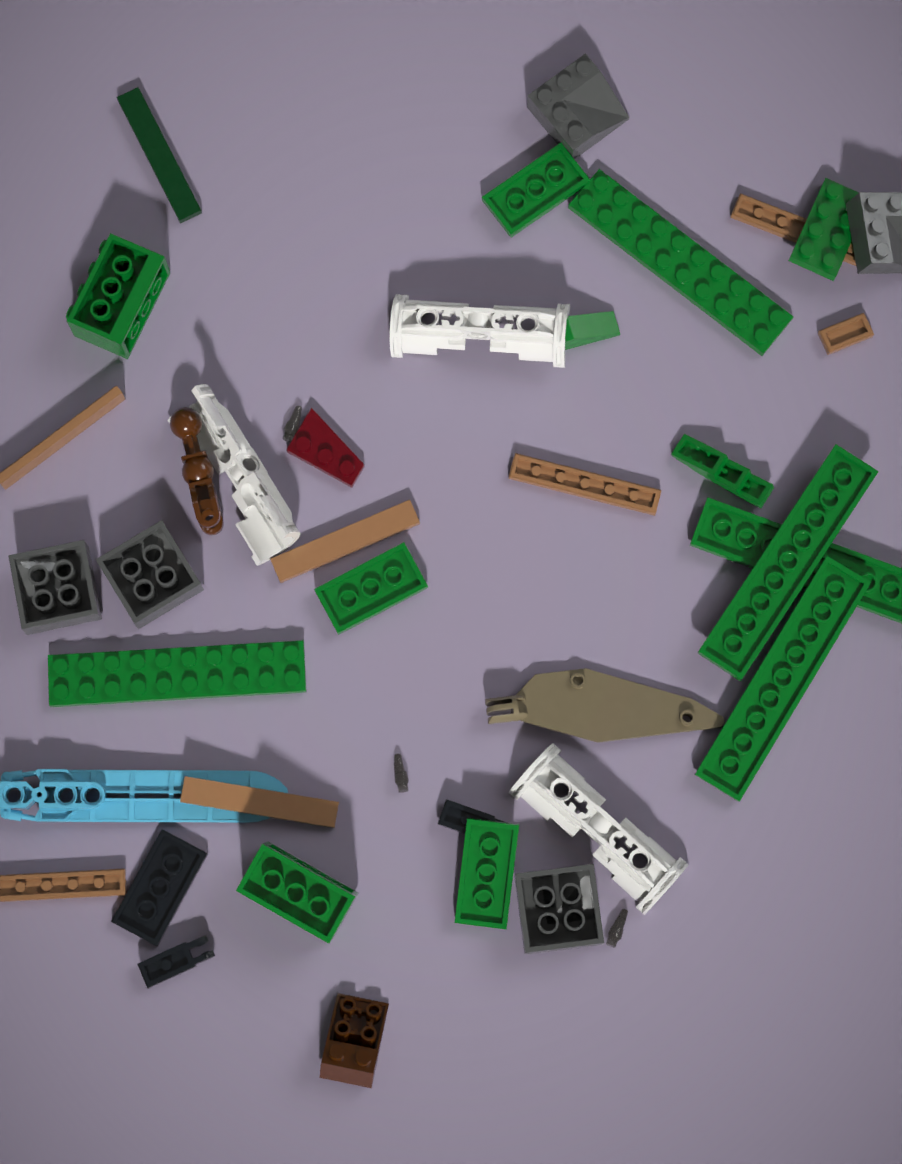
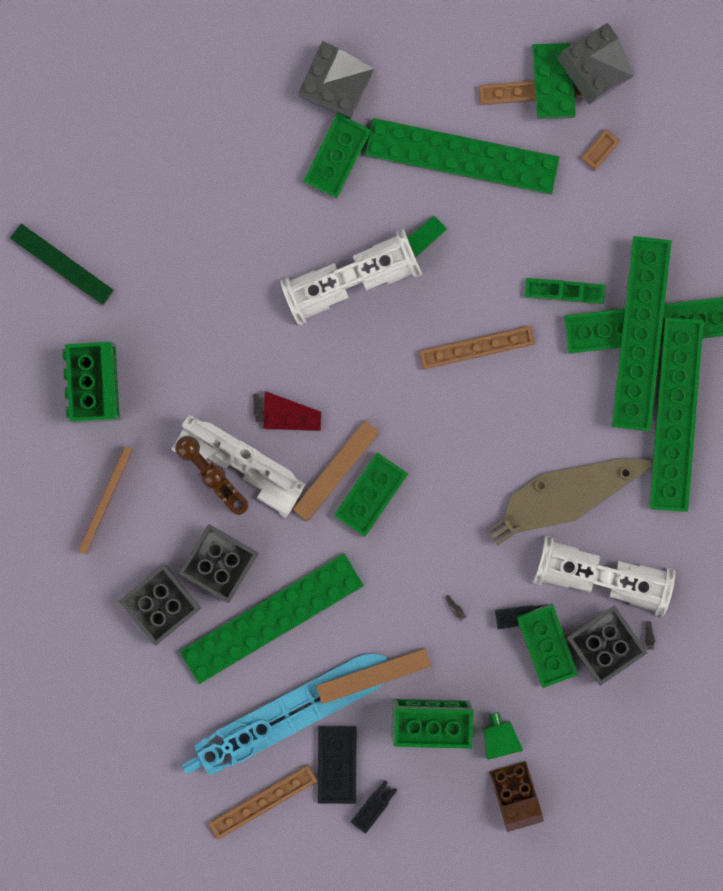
camera: 30 degrees left, 10 degrees up
(372, 956) = (500, 738): none -> green torso

